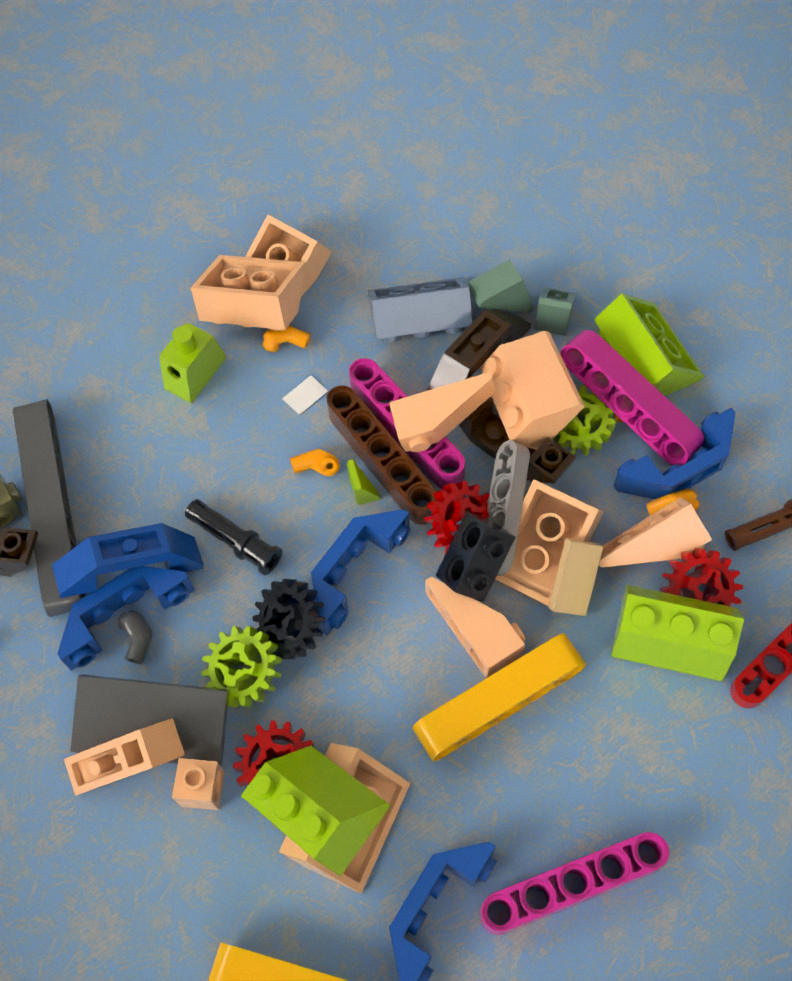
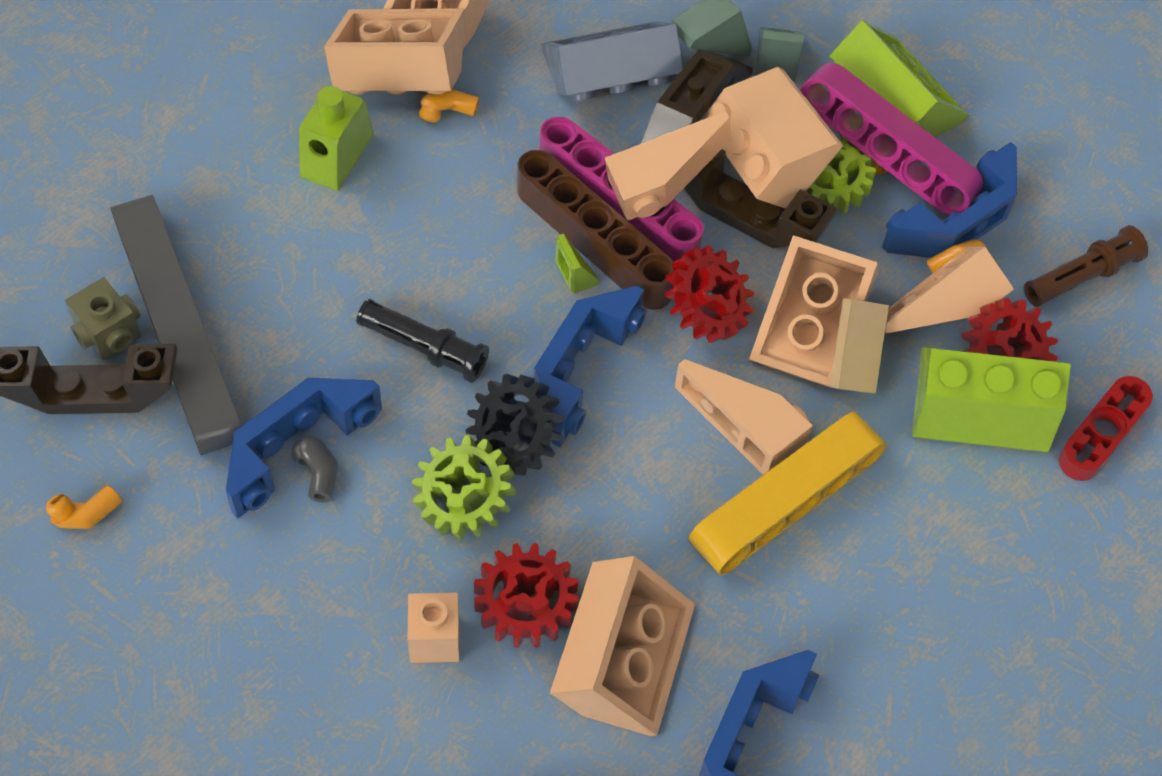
camera: 15 degrees left, 5 degrees down
(119, 706) = (353, 559): dark grey tile -> none
(123, 550) = (244, 381): blue slope -> none
(124, 756) = (333, 603): light nougat slope -> none
(305, 395) = (482, 170): white sticker -> none
(316, 460) = (512, 243): light orange arm -> none
(316, 806) = (596, 624): lime slope -> none
(475, 556) = (736, 329): black brick -> none
(509, 469) = (761, 321): light grey beam -> none
(589, 870) = (902, 708): dark pink beam -> none

